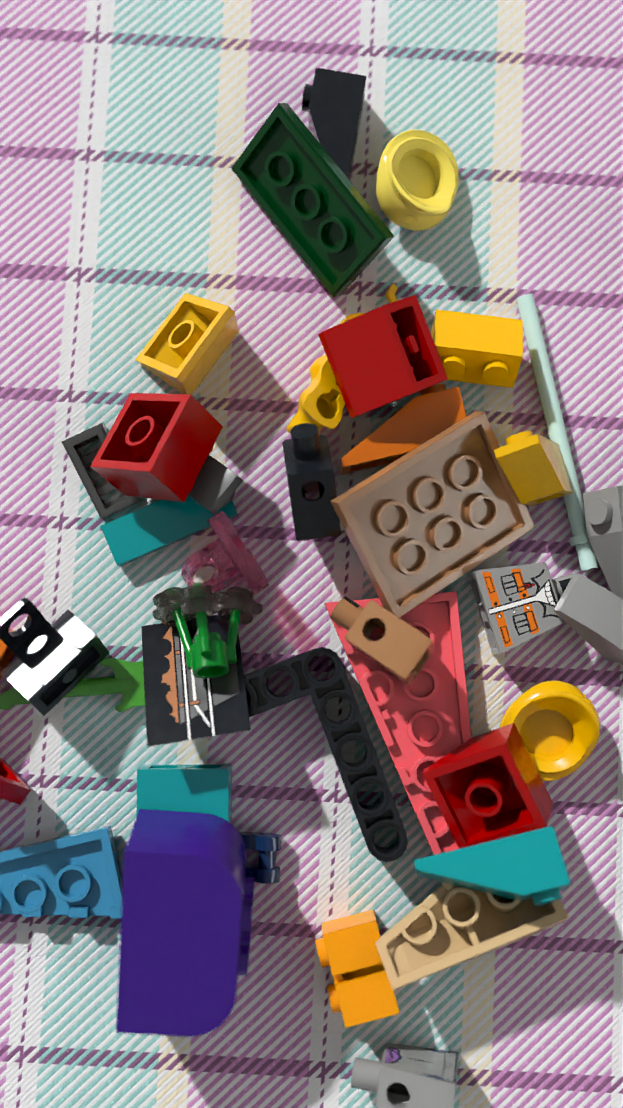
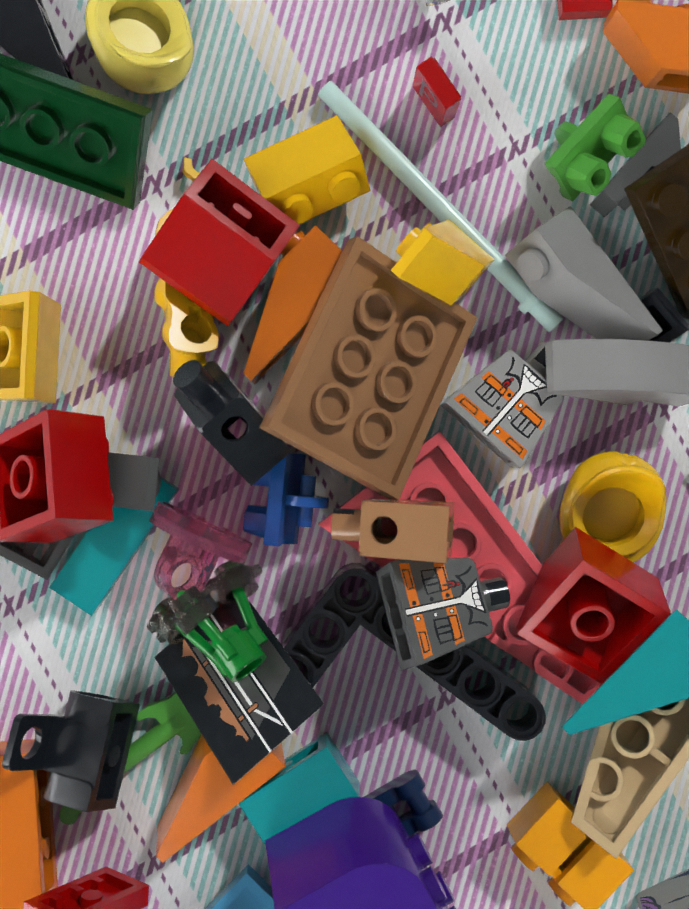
camera: 30 degrees left, 5 degrees up
(121, 748) = (207, 795): none -> orange slope
(313, 573) = (288, 503): none -> blue hips
(376, 713) = (437, 606): none -> dark grey torso
(604, 347) = (436, 91): none -> red tile

